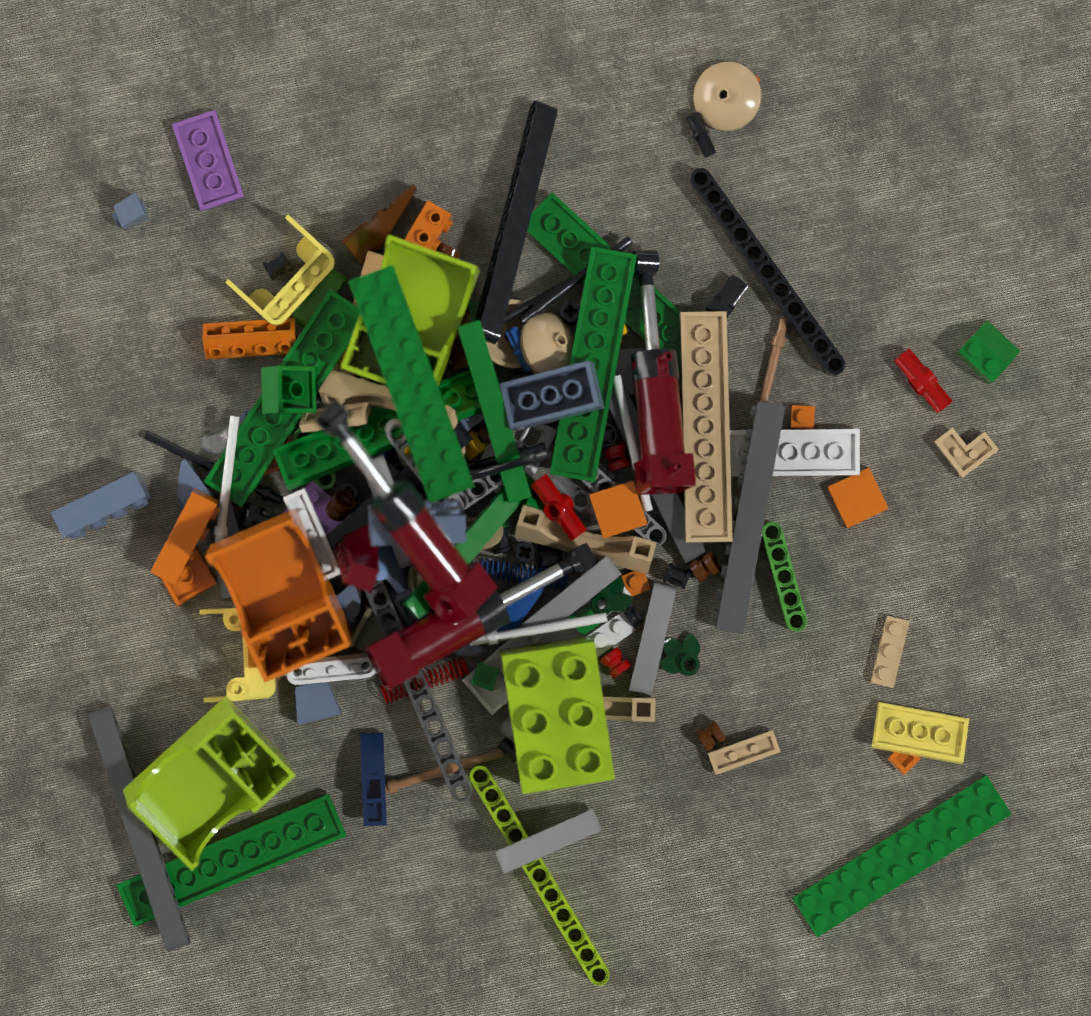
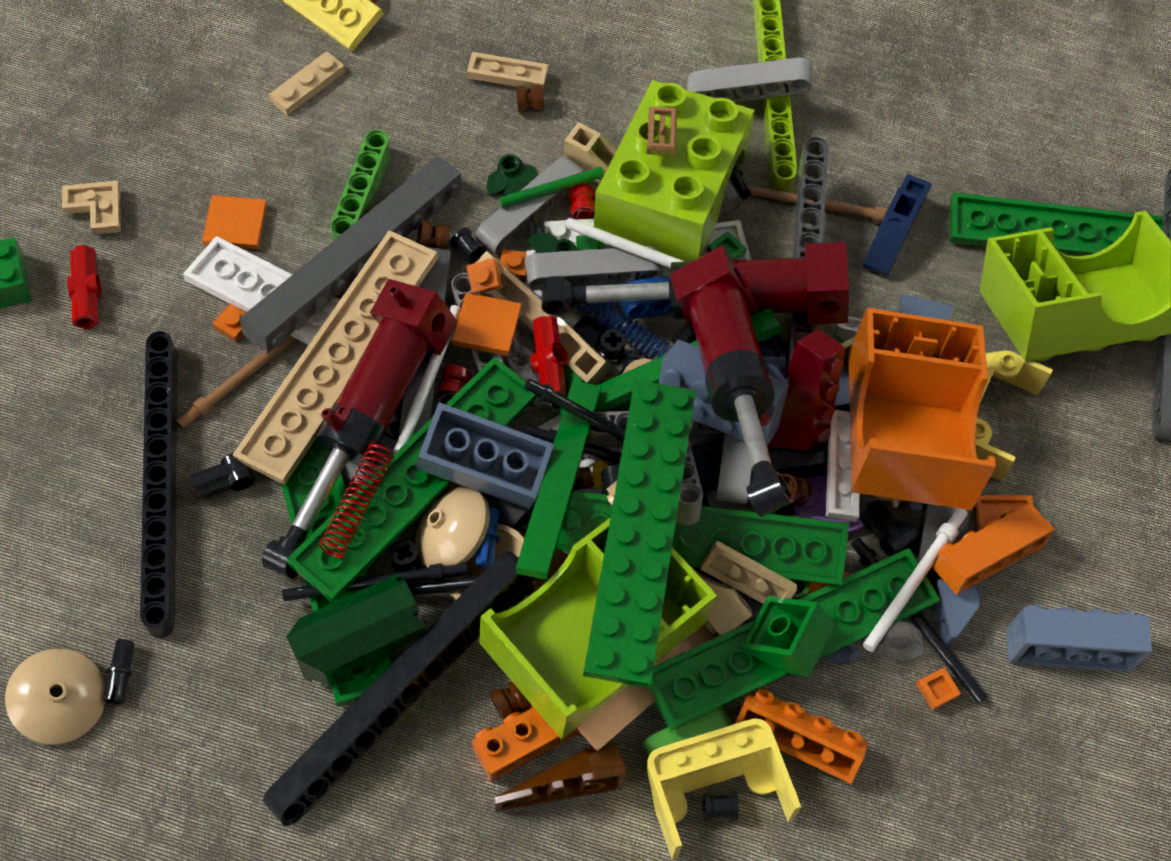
camera: 155 degrees left, 25 degrees down
(177, 424) = (938, 689): none -> orange plate
(563, 236) = (355, 631): none -> dark green brick
(565, 699) = (662, 147): none -> medium nougat tile
(619, 359) = (370, 451): none -> red piece
(640, 541) = (484, 276): none -> orange plate
(642, 654) = (551, 187): none -> green bar

